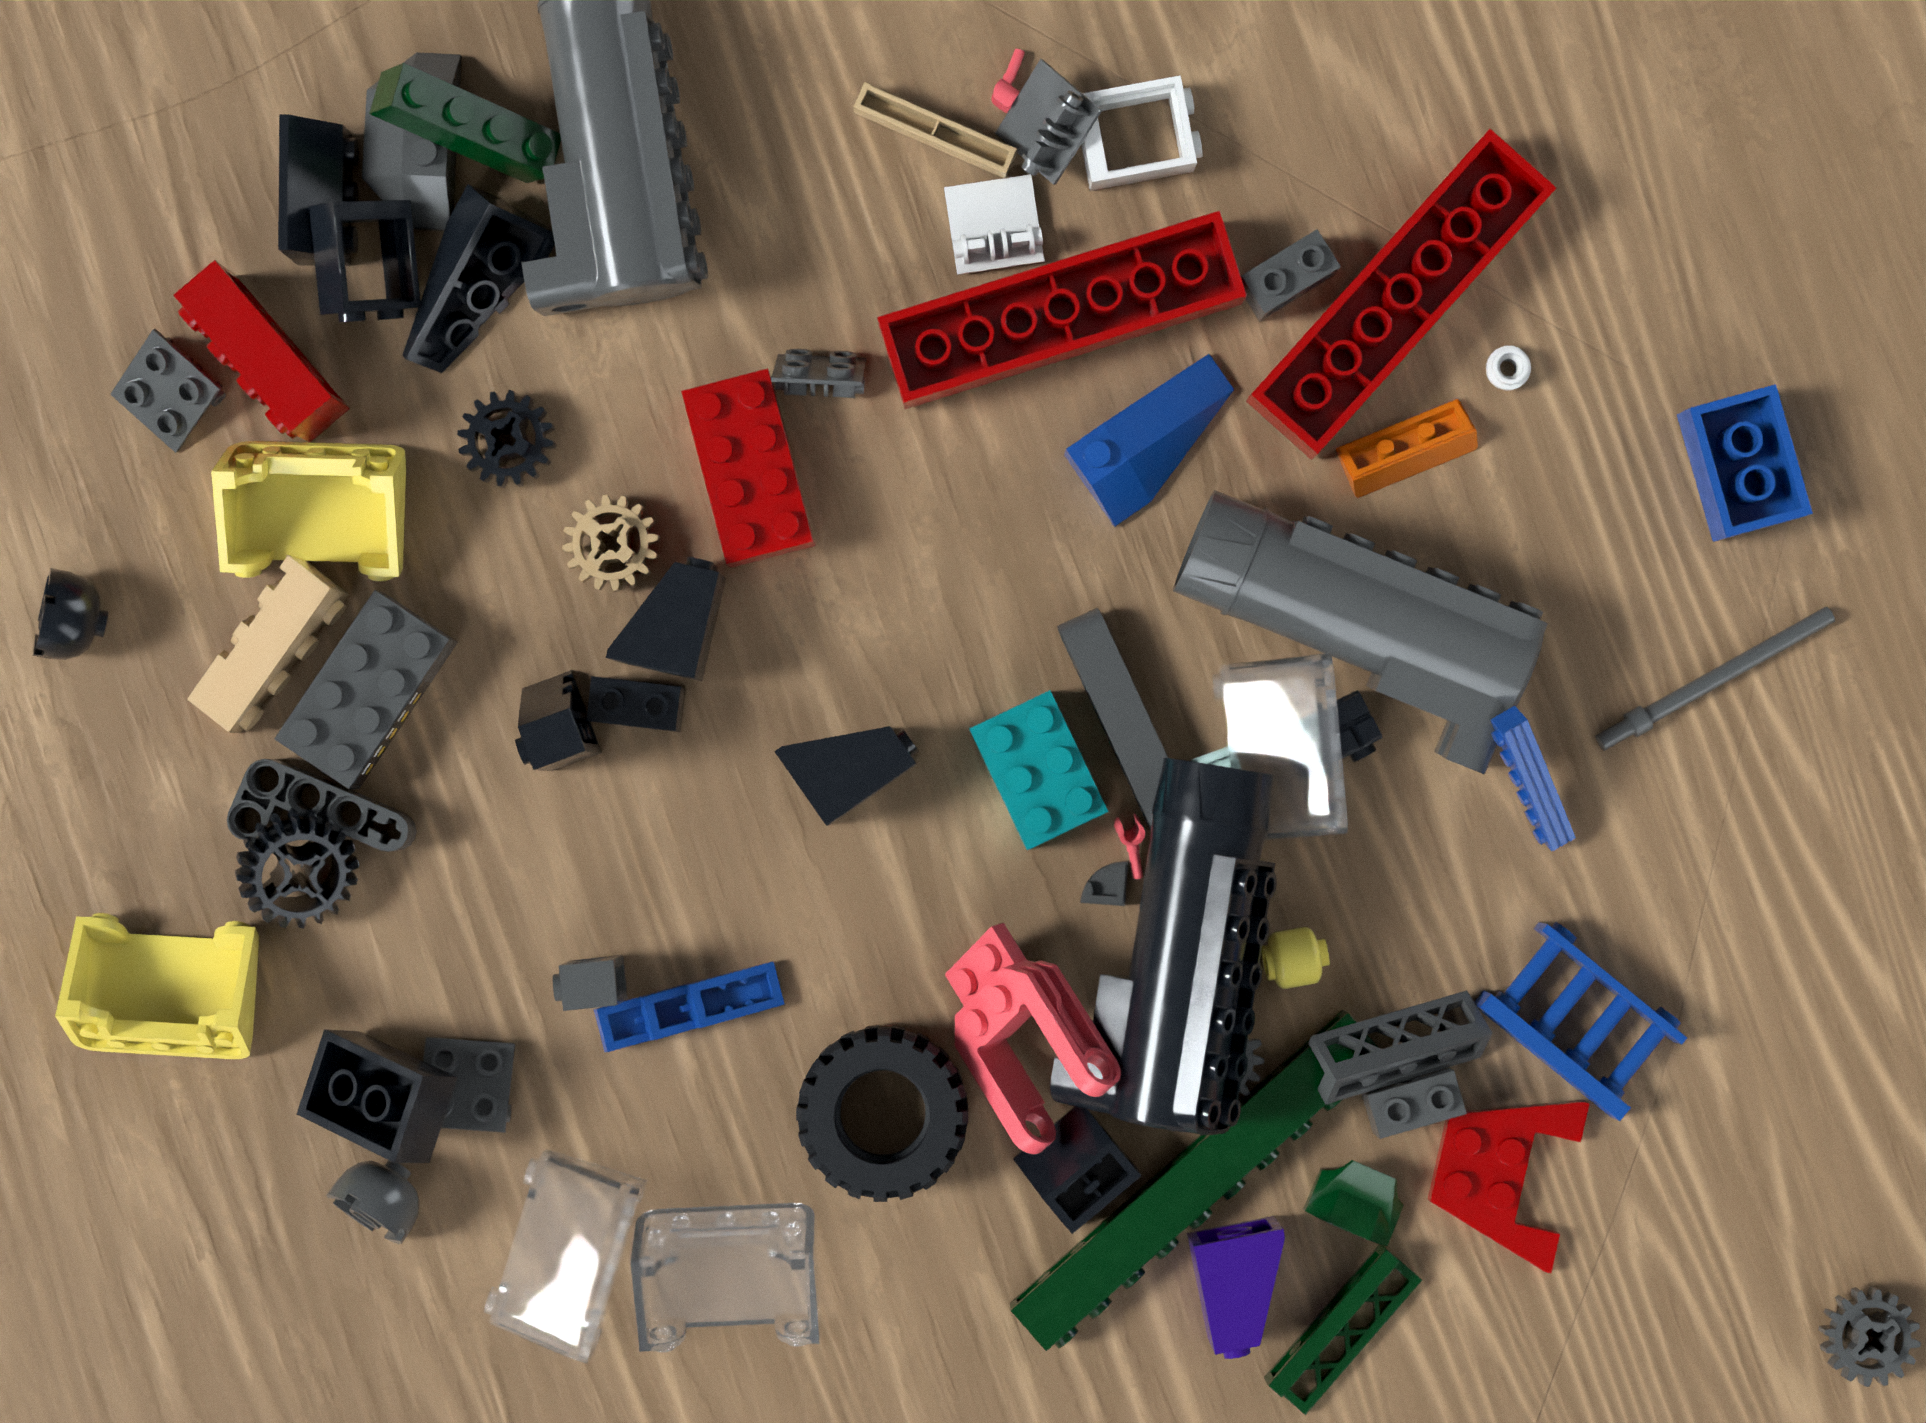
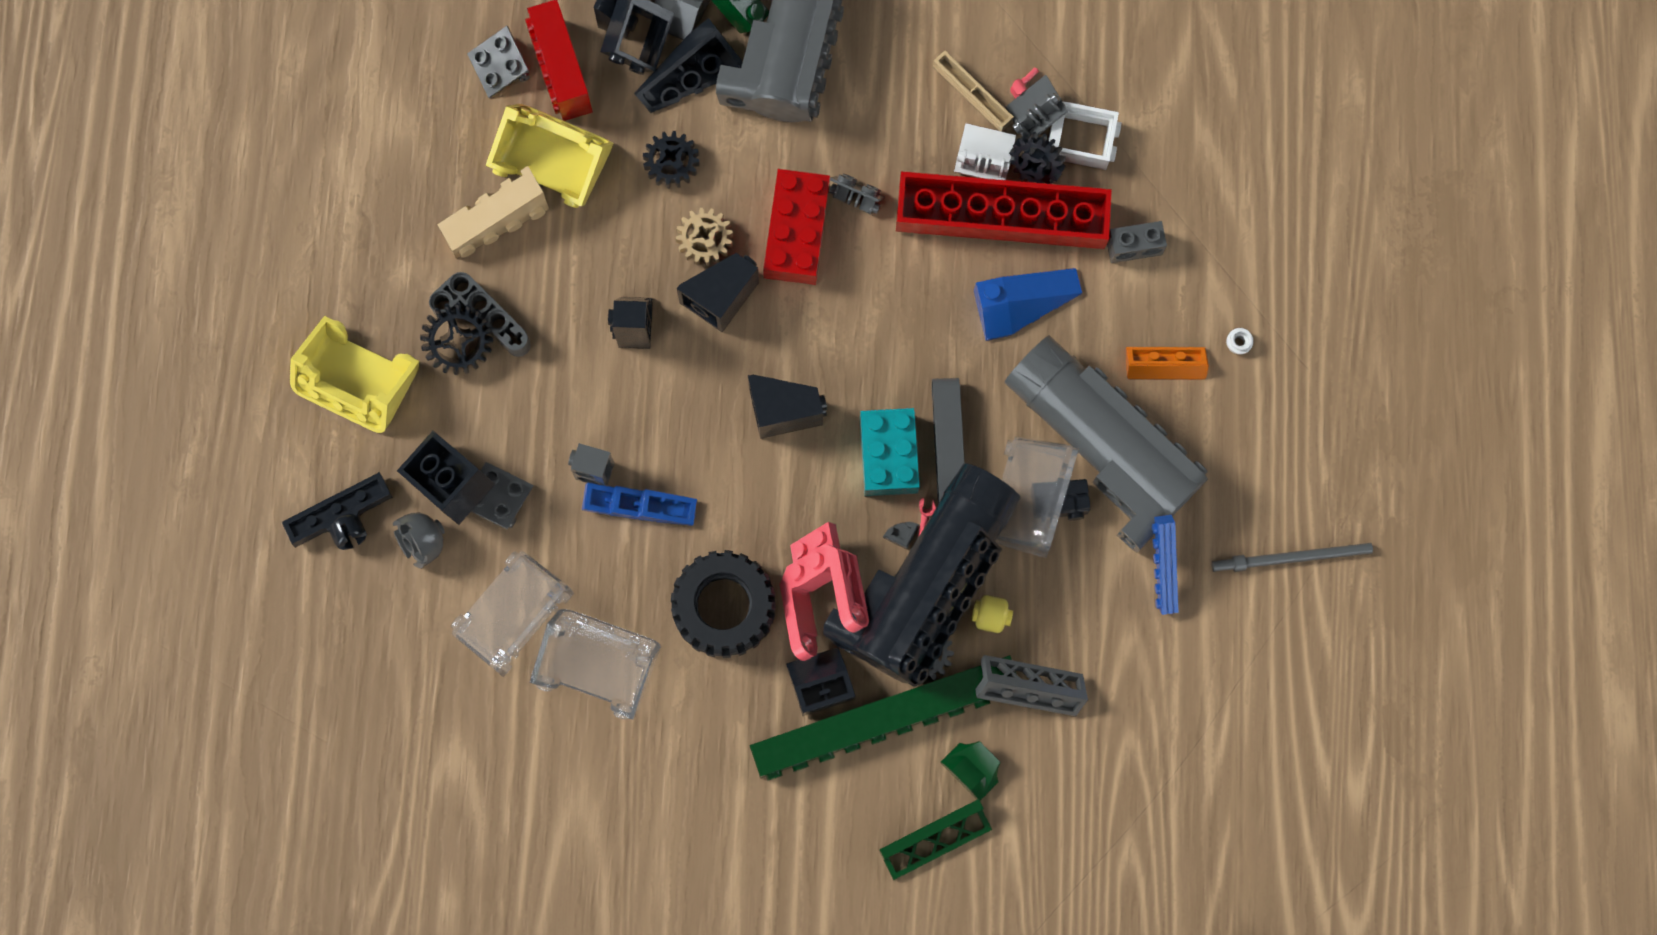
camera: 20 degrees right, 10 degrees down
(68, 616) = (392, 157): black cylinder -> none
(238, 1211) = (339, 514): none -> black plate
(366, 690) = (536, 260): dark grey brick -> none
(635, 704) = (681, 327): black brick -> none
(1082, 206) = (1037, 159): none -> black gear
(1236, 1281) = (883, 780): dark purple slope -> none
(1400, 294) = (1194, 275): red brick -> none
(1414, 1103) = (1027, 723): dark grey brick -> none
(1485, 1167) = (1054, 779): red wing -> none
(1539, 1034) = (1128, 739): blue fence -> none
(1744, 463) = (1352, 442): blue brick -> none

